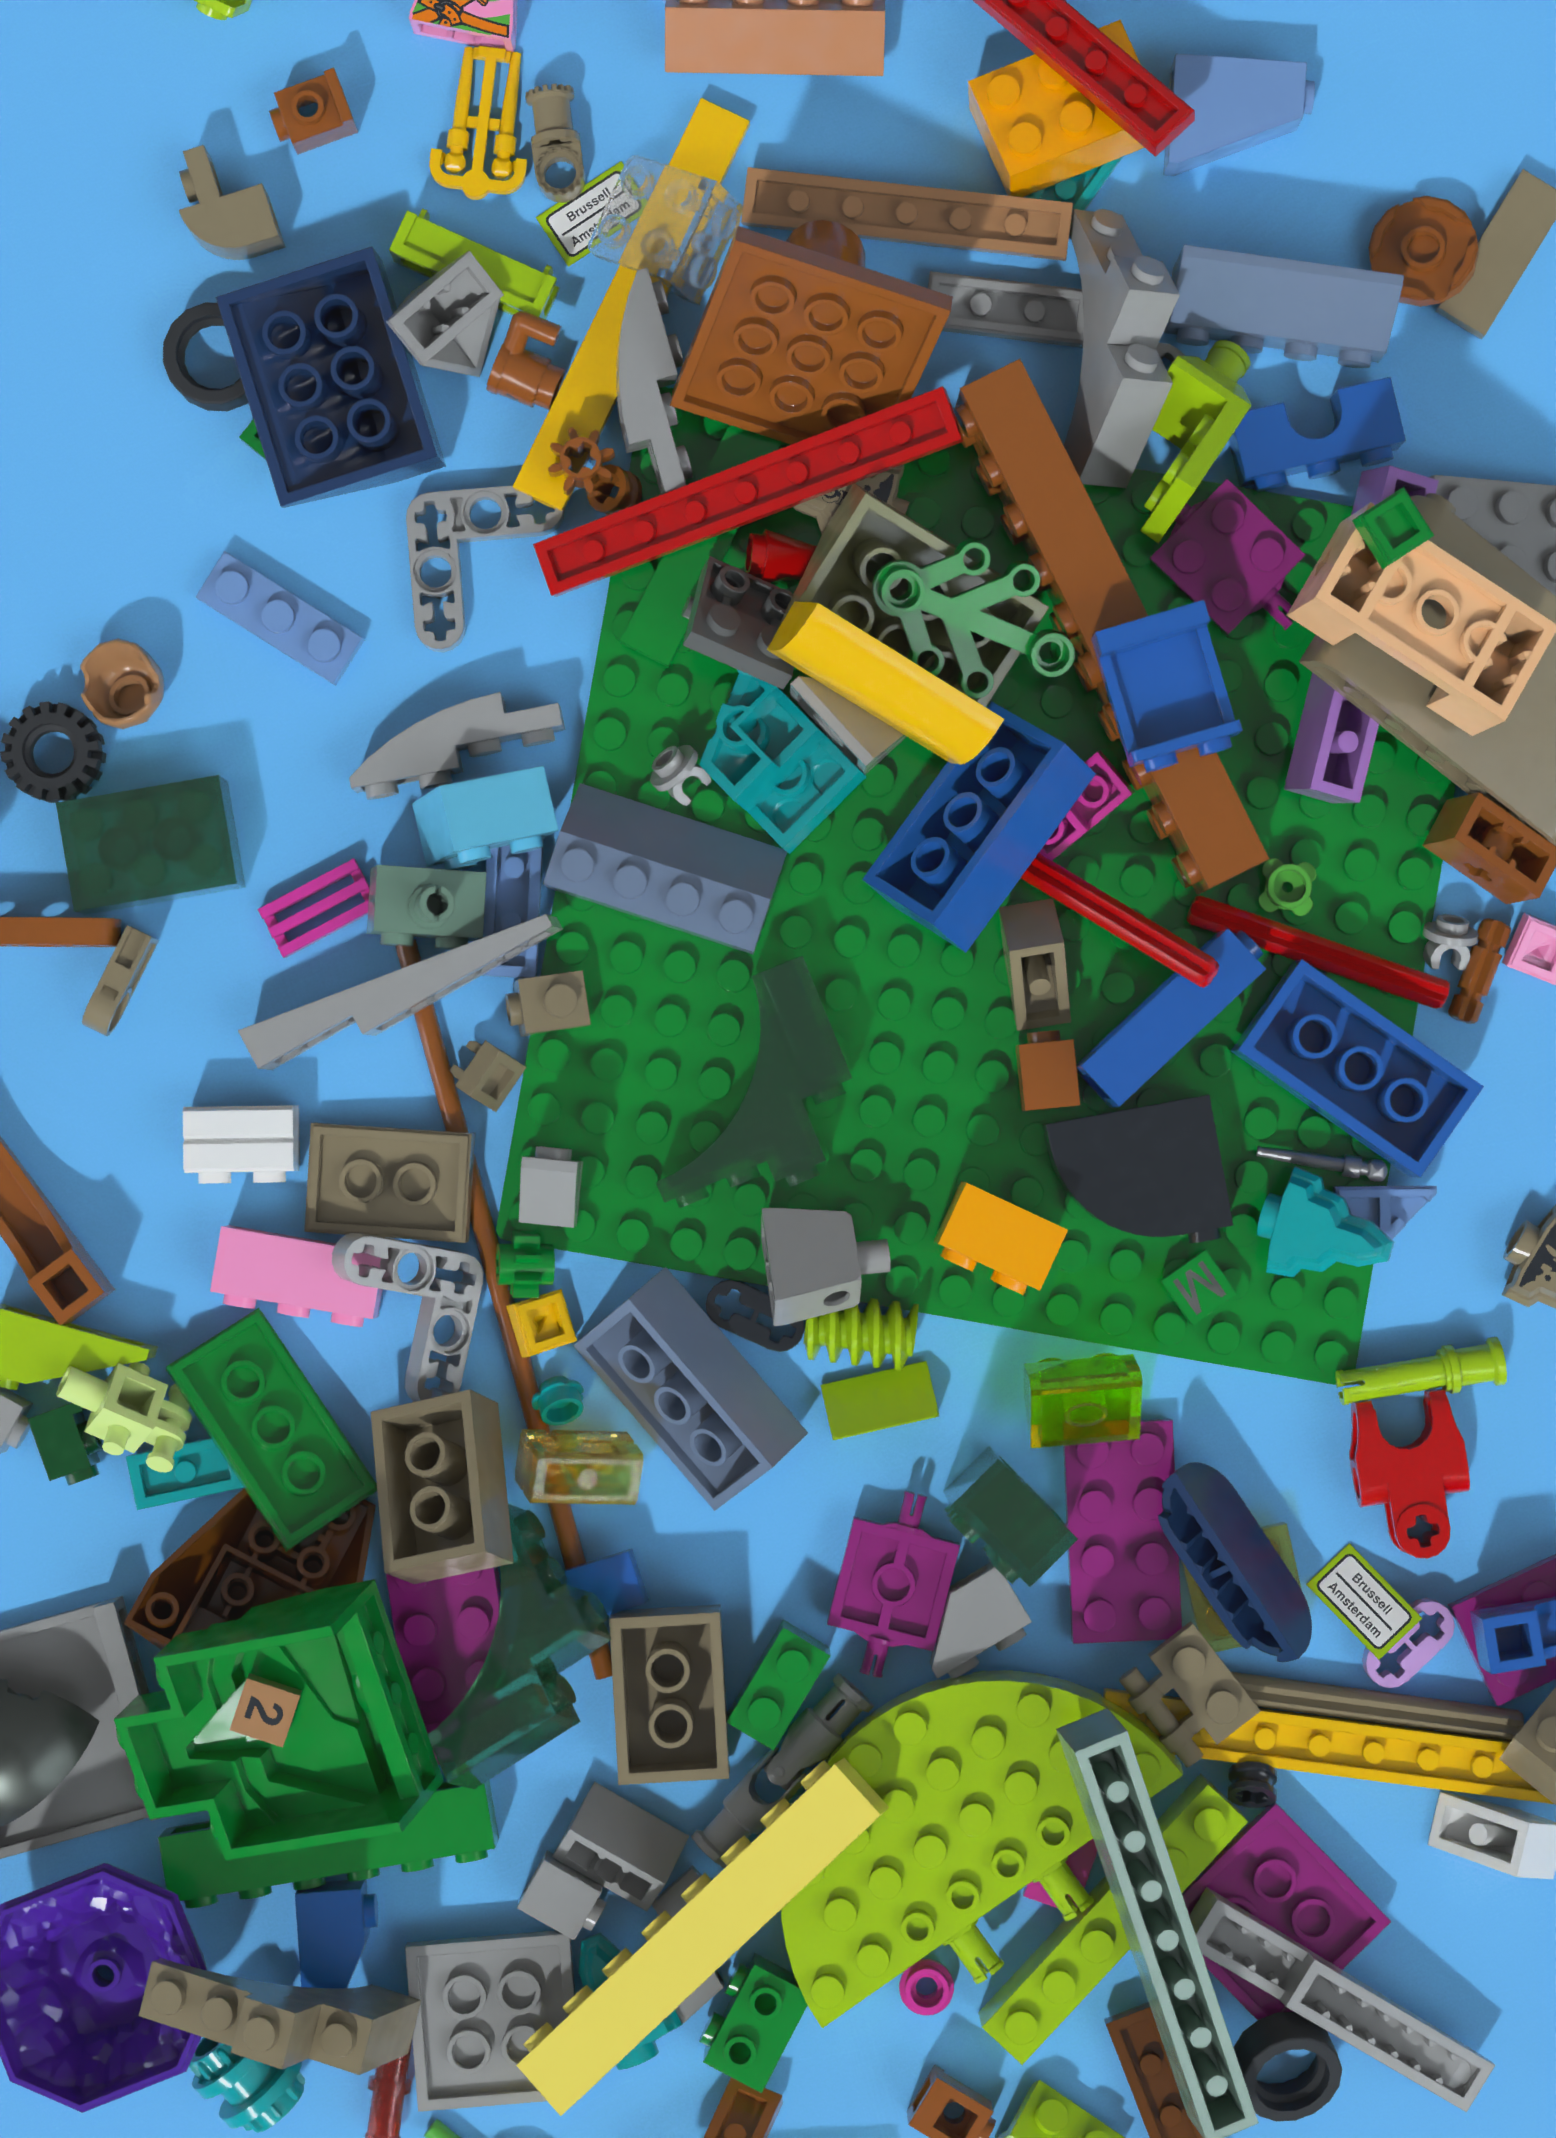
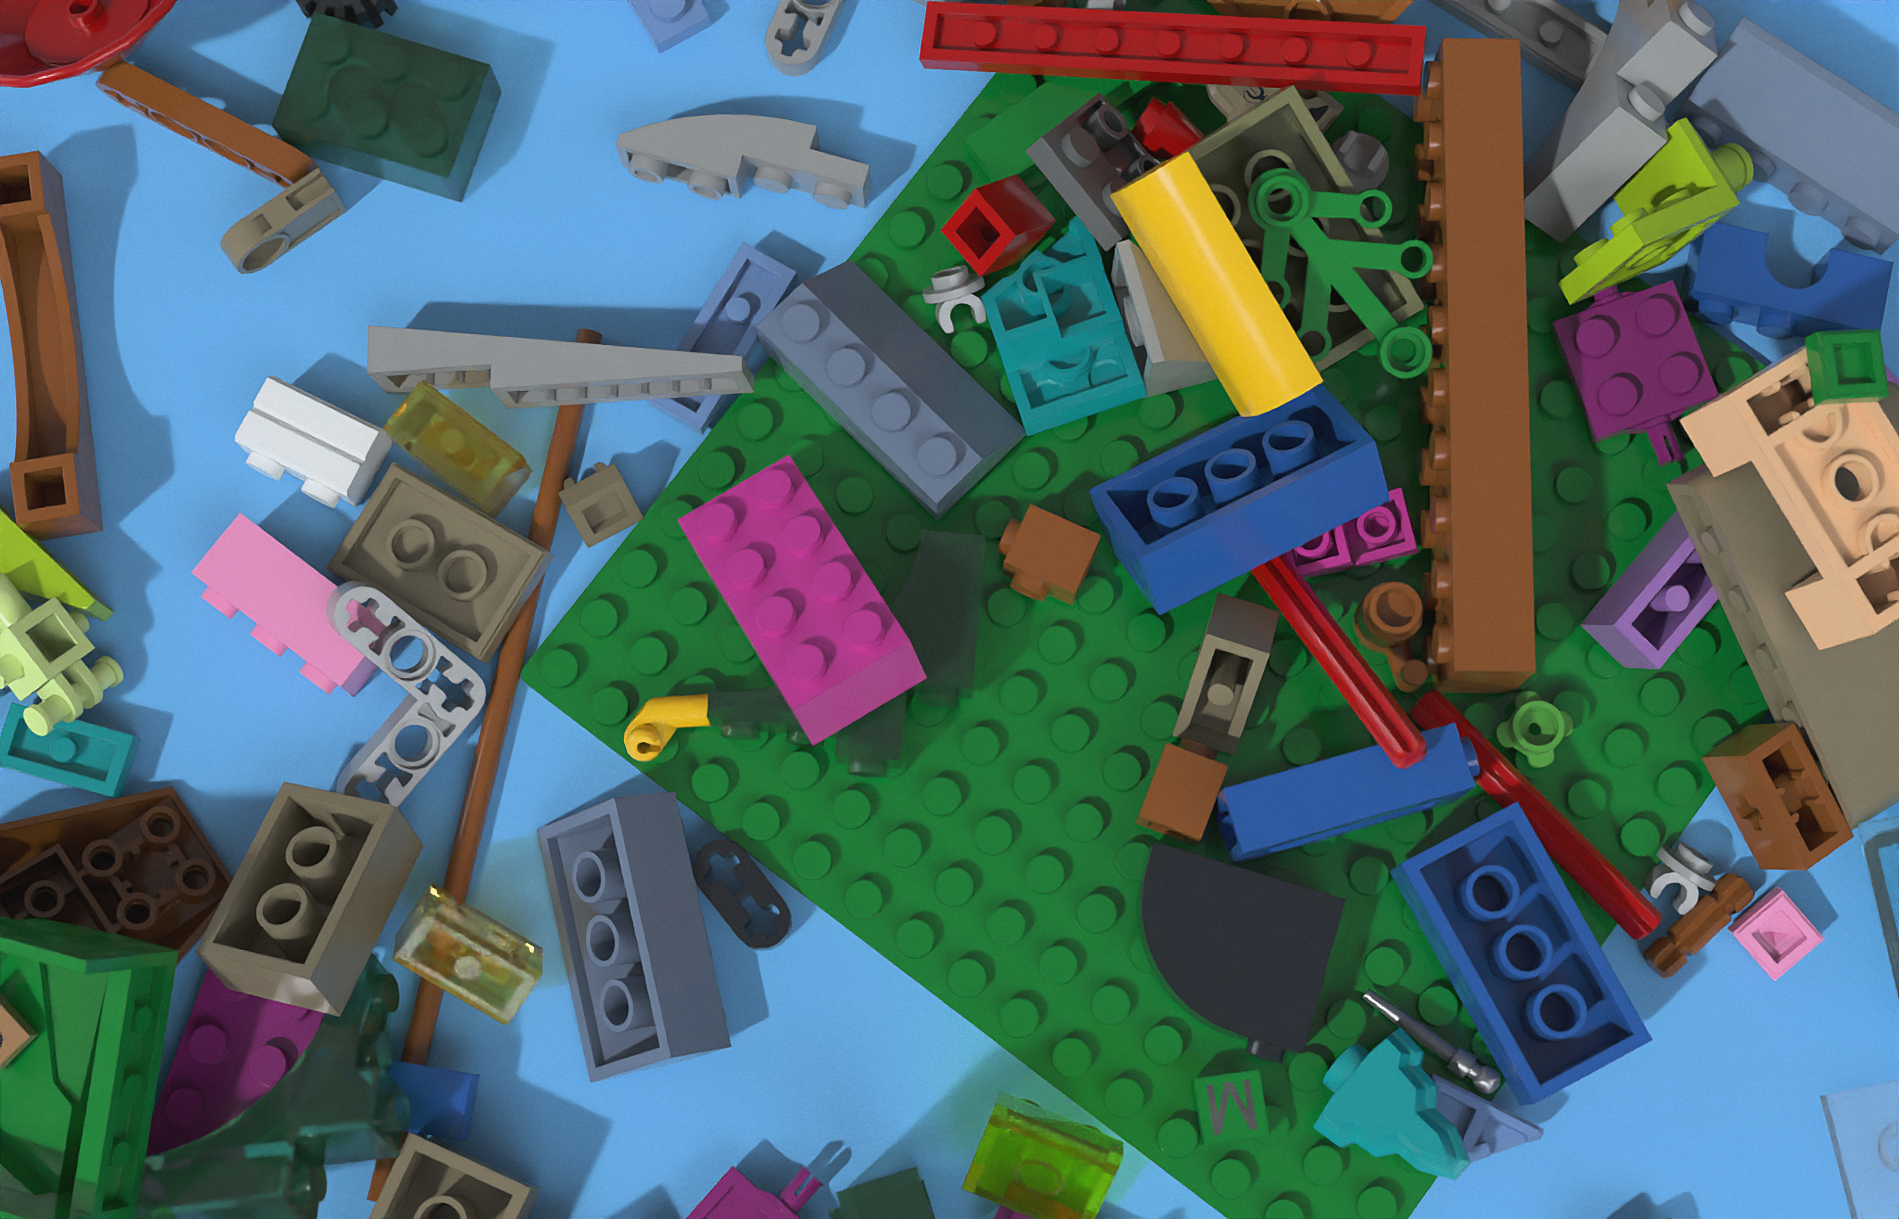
camera: 30 degrees right, 10 degrees down
(272, 1429) = (176, 752): green tile -> none
(278, 929) = (522, 233): dark pink tile -> none
(359, 1091) = (457, 449): none -> clear yellow brick
(426, 905) = (627, 296): sand green brick -> none
(471, 817) = (736, 232): medium azure brick -> none
(525, 1264) = (530, 714): green gear -> none
(541, 1323) = (515, 787): yellow tile -> none
(548, 1003) = (699, 459): dark tan bracket -> none
(550, 1187) = (597, 641): light grey slope -> none
(559, 1400) = (489, 877): teal plate -> none
(625, 1217) = (660, 719): none -> yellow arm
(684, 702) = (998, 225): none -> red brick
(689, 1078) = (802, 599): none -> dark pink brick
(815, 1262) = (833, 864): light grey torso -> none
(854, 943) = (1047, 555): none -> dark orange brick
(863, 1333) = (842, 966): lime piece -> none
(879, 1400) = (826, 1053): lime slope -> none
(936, 503) = (1362, 160): none -> light grey plate
(1000, 1237) = (1041, 934): light orange brick -> none
(1138, 861) = (1386, 624): none -> dark orange piece
(1166, 686) = (1513, 431): blue panel -> none

